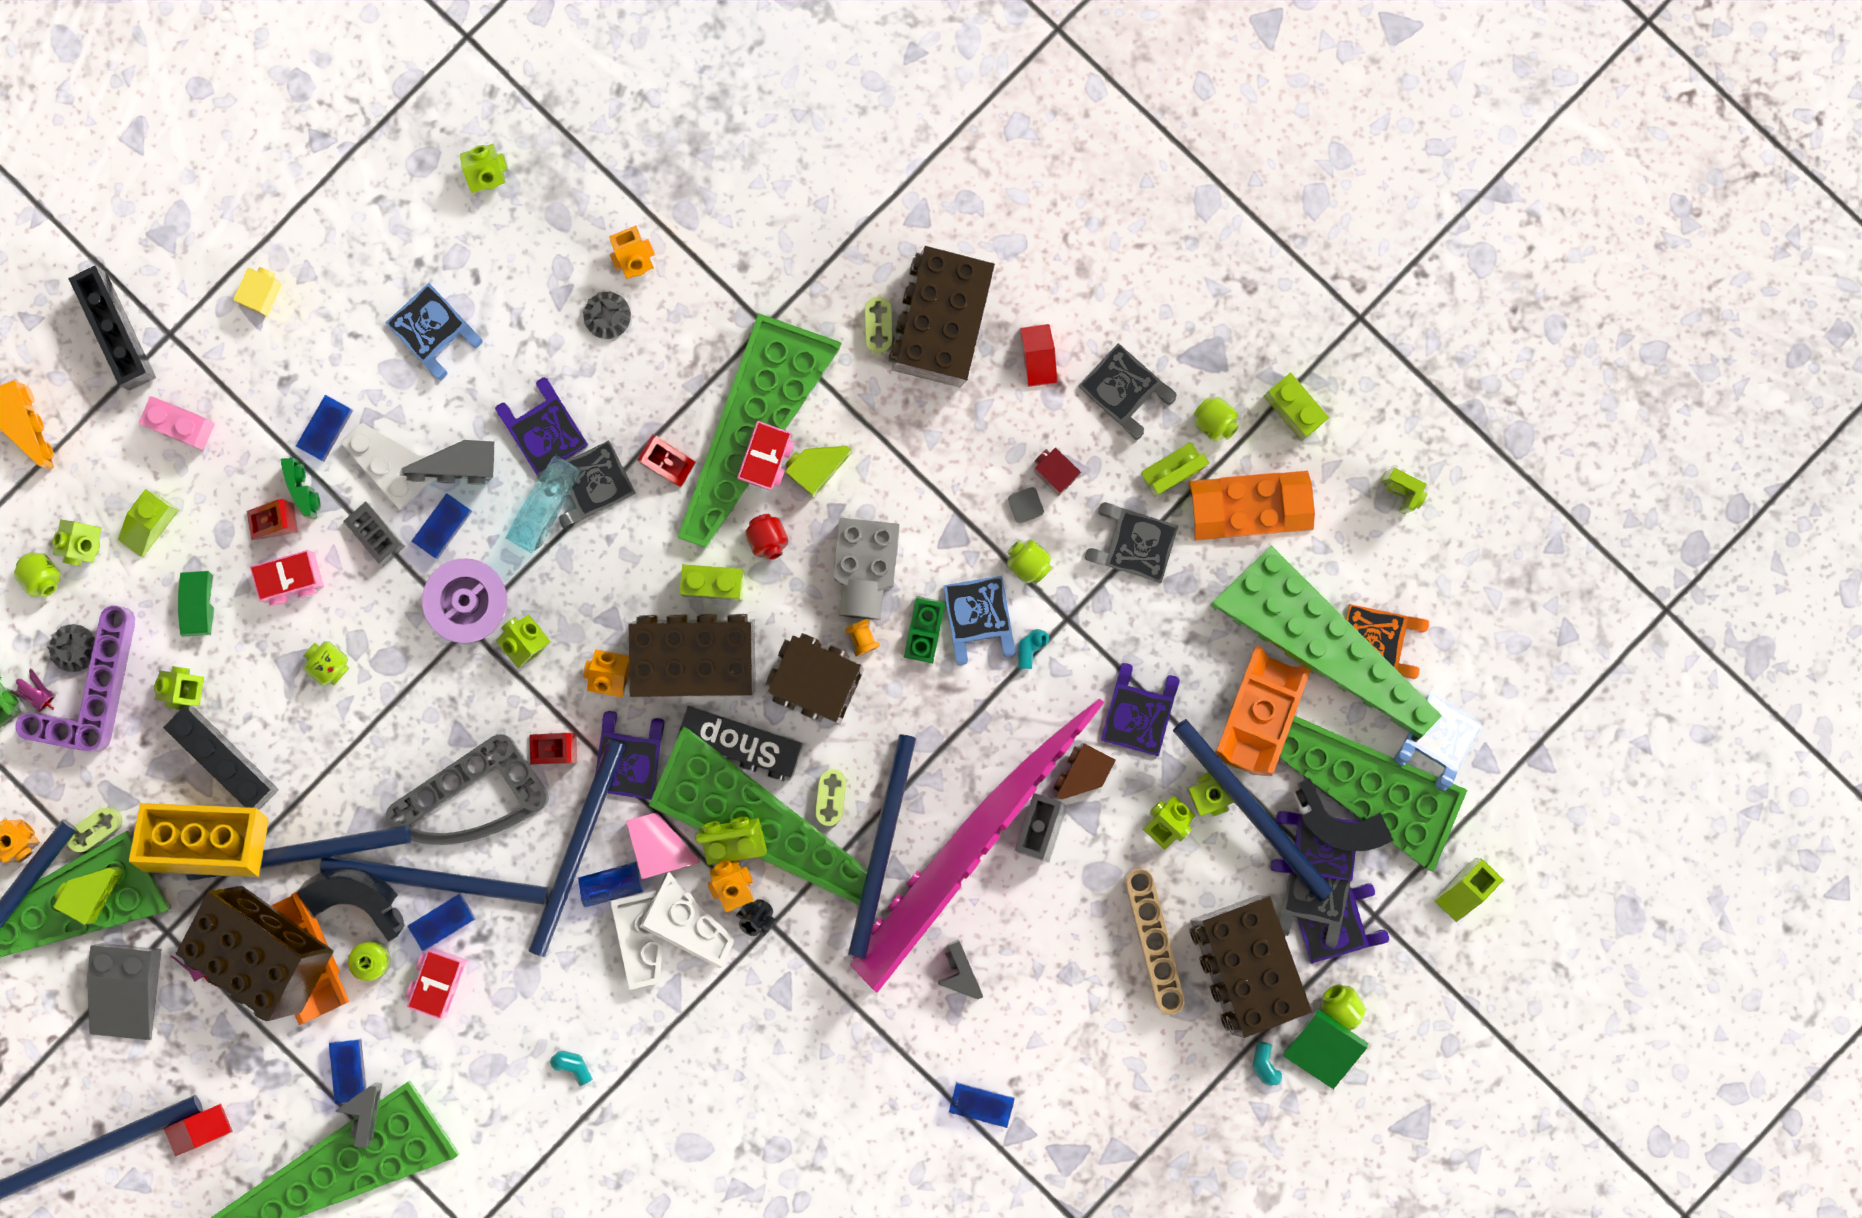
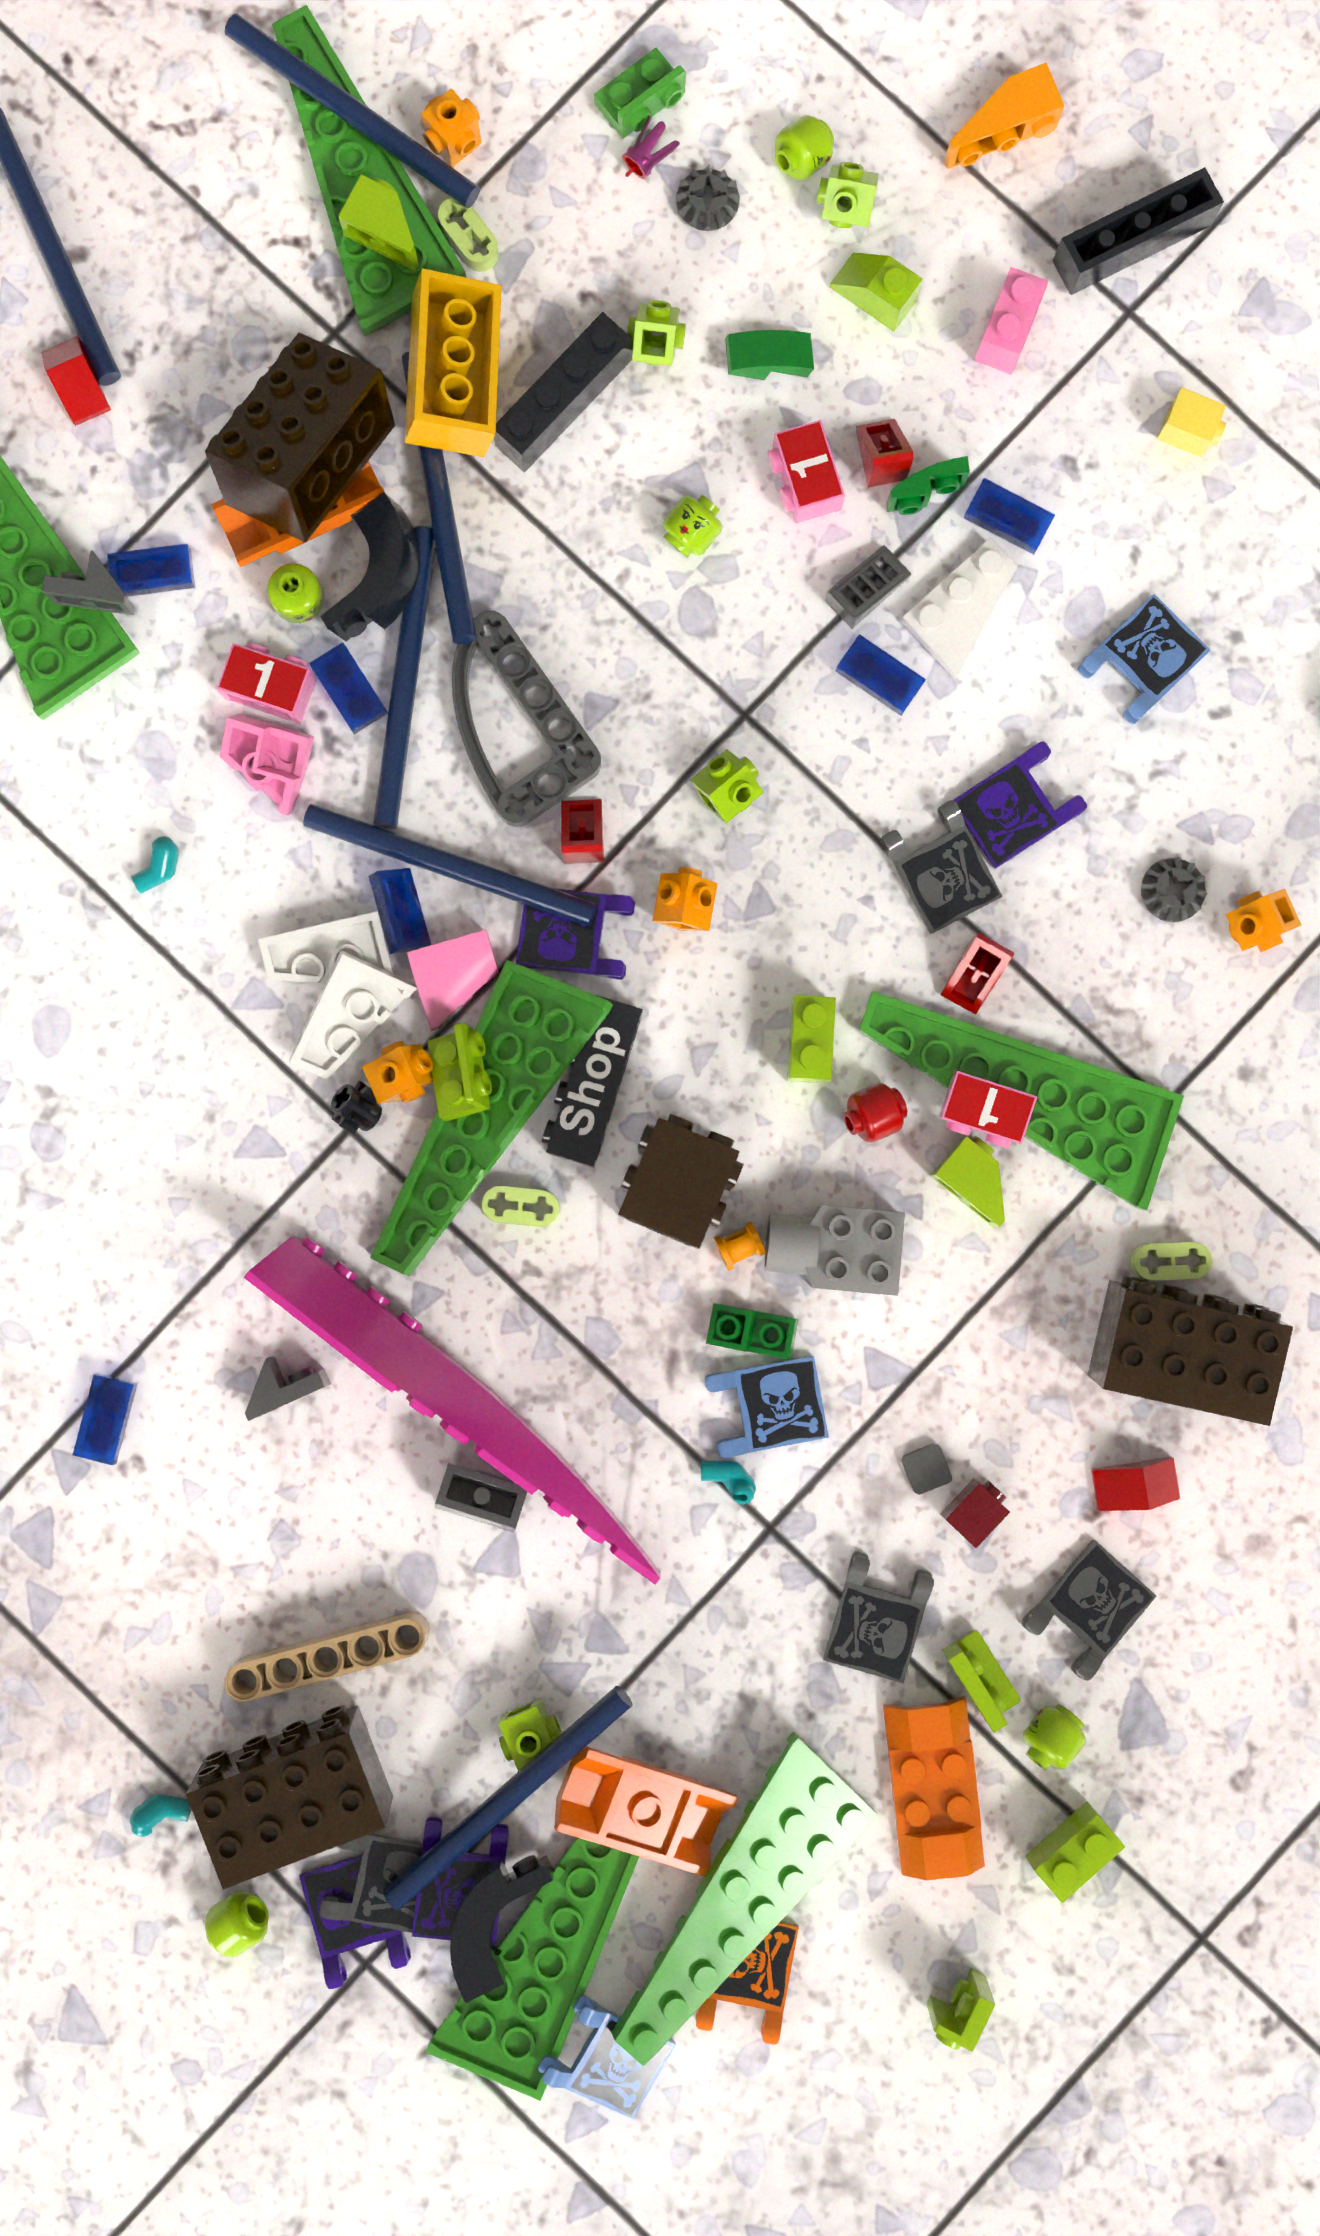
camera: 90 degrees right, 0 degrees up
(94, 691) = (652, 225): medium lavender beam -> none
(122, 990) = (259, 276): dark grey slope -> none
(463, 460) = (970, 696): dark grey slope -> none
(464, 600) = (780, 704): lavender piece -> none
(491, 983) = (268, 756): none -> bright pink slope
(543, 505) = (911, 808): clear light blue slope -> none
(692, 656) = (709, 1013): dark brown brick -> none
(882, 847) = (452, 1278): dark blue piece -> none
(1029, 561) = (849, 1475): lime head -> none
(1087, 772) = (557, 1558): reddish brown slope -> none
(1138, 716) = (637, 1630): flag -> none
(1169, 822) = (490, 1676): lime brick -> none
(1325, 1049) = (178, 1900): green tile -> none
(1469, 889) = (401, 2105): lime slope -> none

